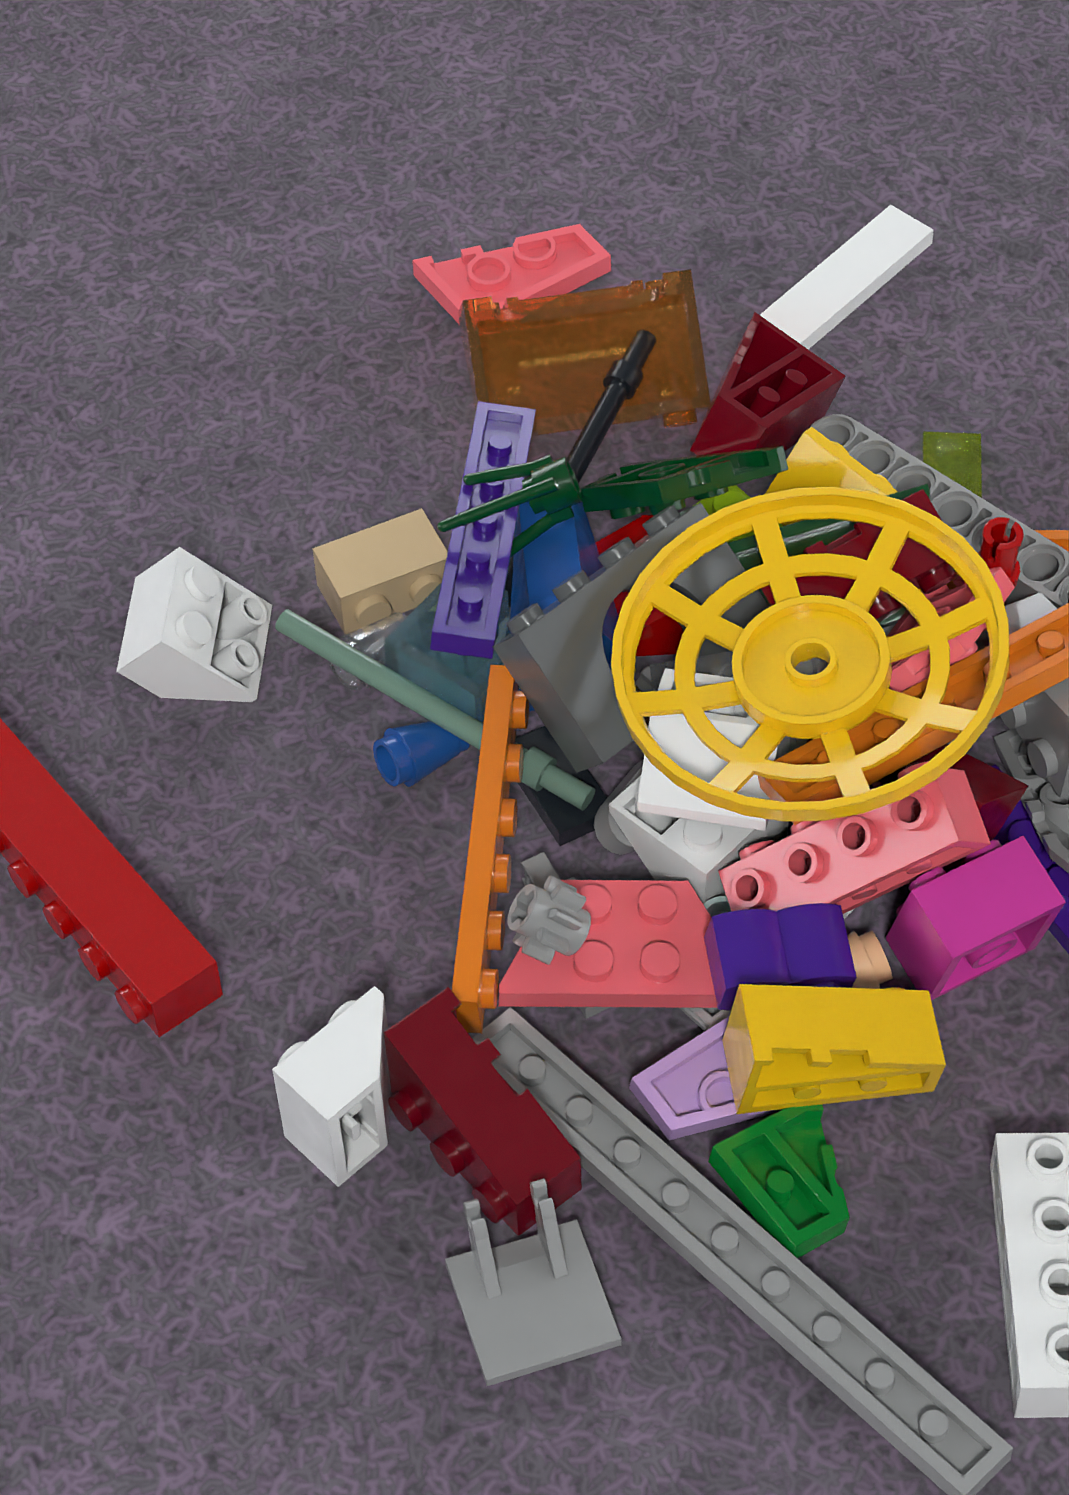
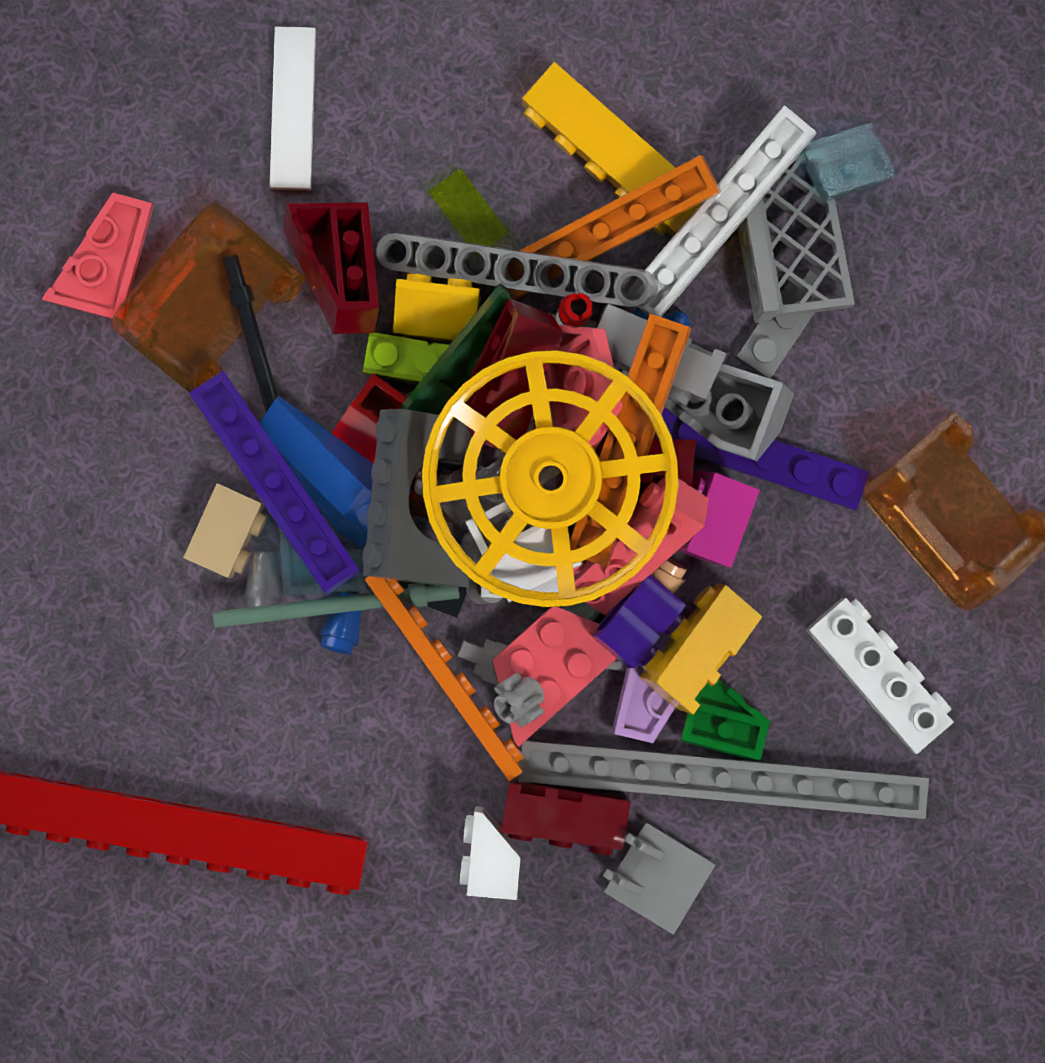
camera: 40 degrees left, 35 degrees up
(194, 633) = (163, 652): white slope -> none
(549, 488) = (297, 444): dark green plant -> none
(675, 479) = (346, 369): dark green wing -> none

